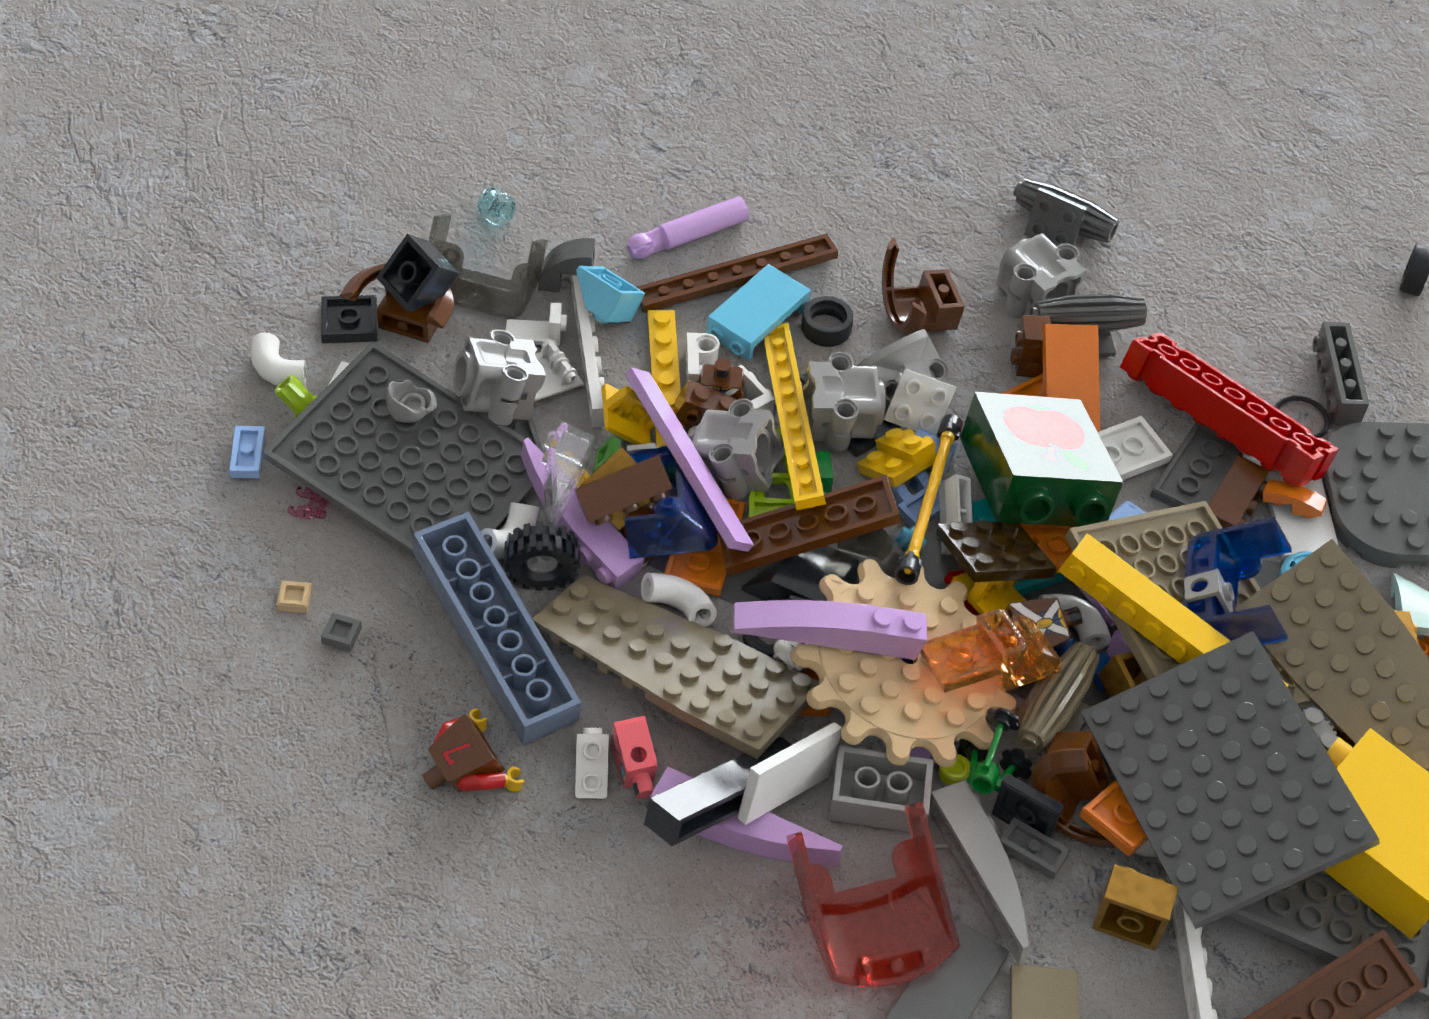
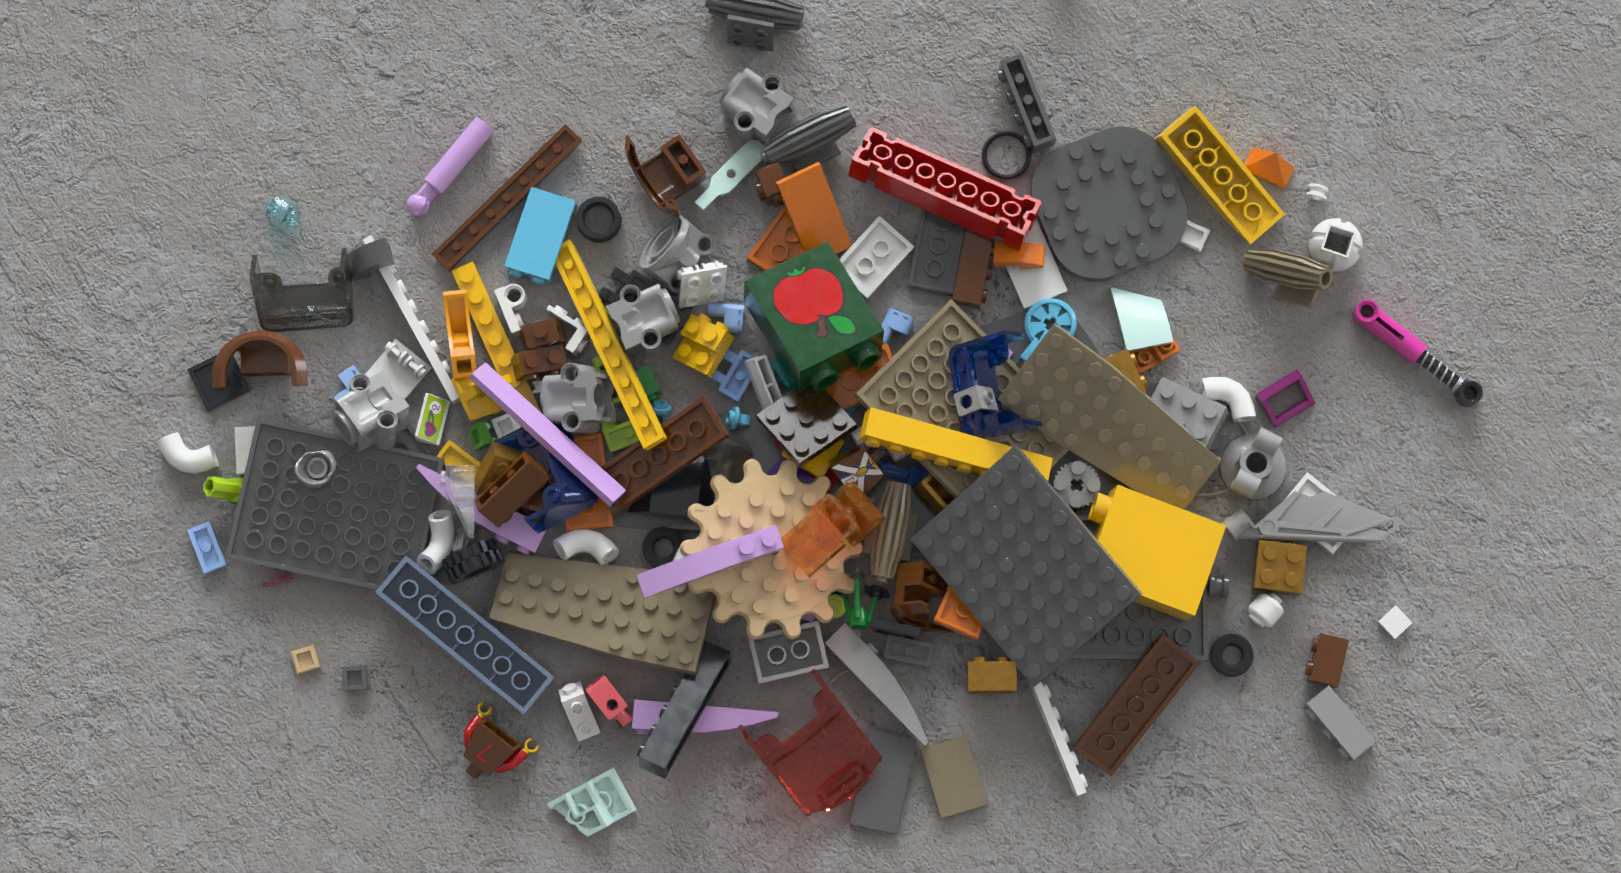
camera: 10 degrees left, 30 degrees up
(417, 273) = (267, 352): black slope -> none
(540, 330) = (371, 331): white bracket -> none
(565, 870) = (595, 803): none -> light aqua slope
(566, 412) = (432, 420): none -> slope
(608, 294) = (415, 278): medium azure slope -> none
(632, 349) = (459, 333): none -> light orange arch
(789, 773) = (722, 676): white tile -> none
(910, 565) = (747, 471): hose -> none
(984, 329) = (740, 164): none -> light aqua piece

